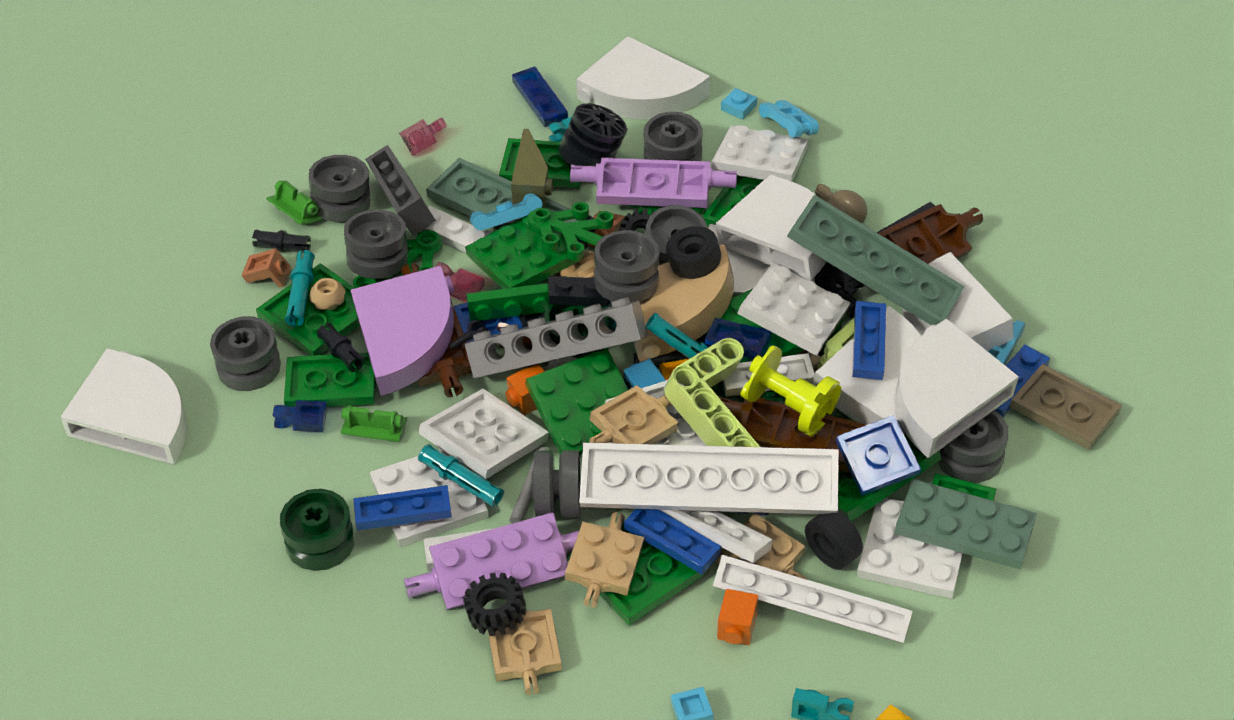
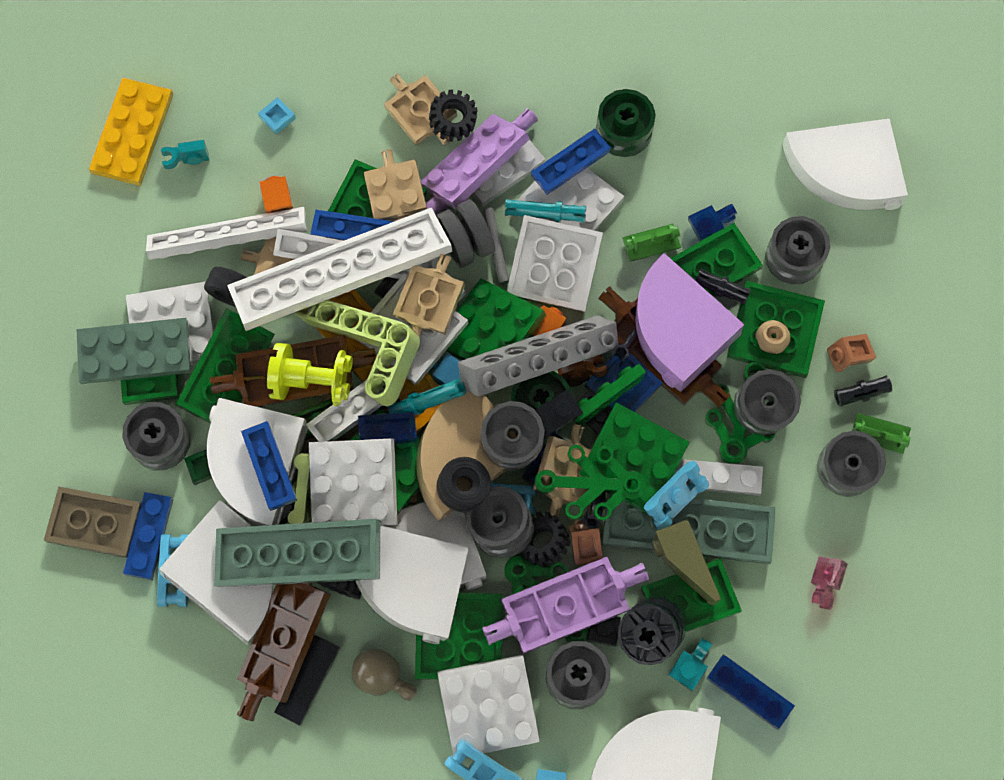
camera: 150 degrees right, 25 degrees up
(301, 280) = (805, 339): teal pin -> none
(400, 190) = (791, 480): dark grey brick -> none
(463, 282) = (676, 419): clear pink plate -> none
(877, 455) = (218, 358): plate -> none
(948, 386) = (184, 447): white brick -> none

